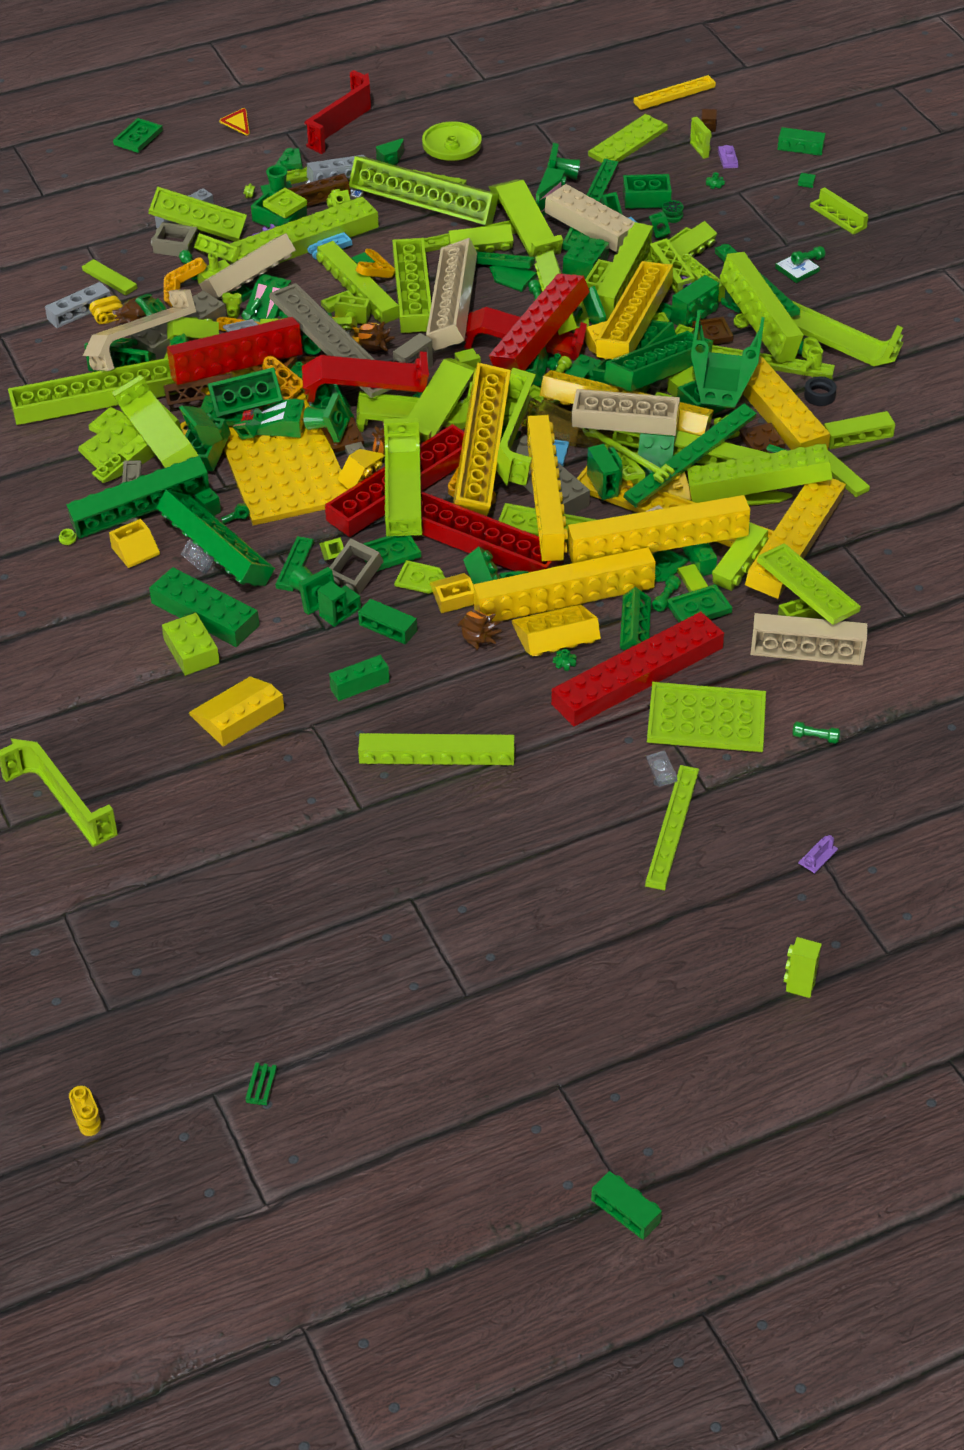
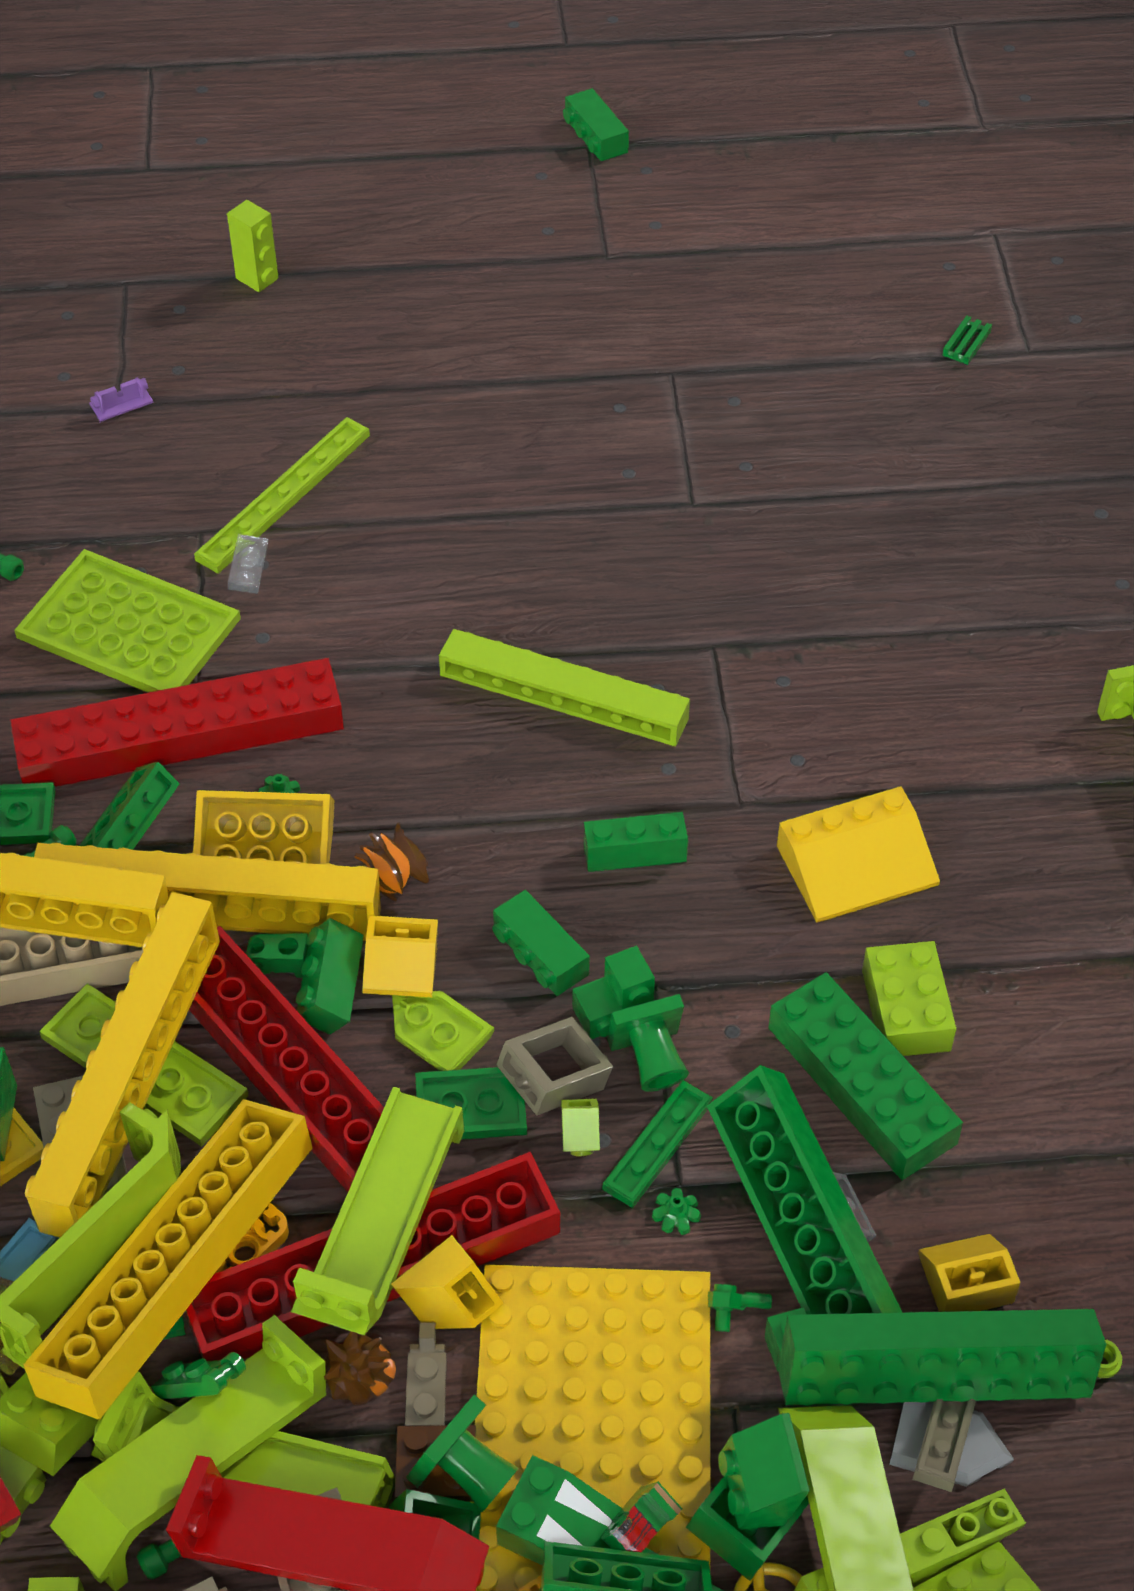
camera: 160 degrees left, 5 degrees up
(276, 541) = (676, 1211): none -> green plant
(447, 416) = (199, 1377): none -> green plate

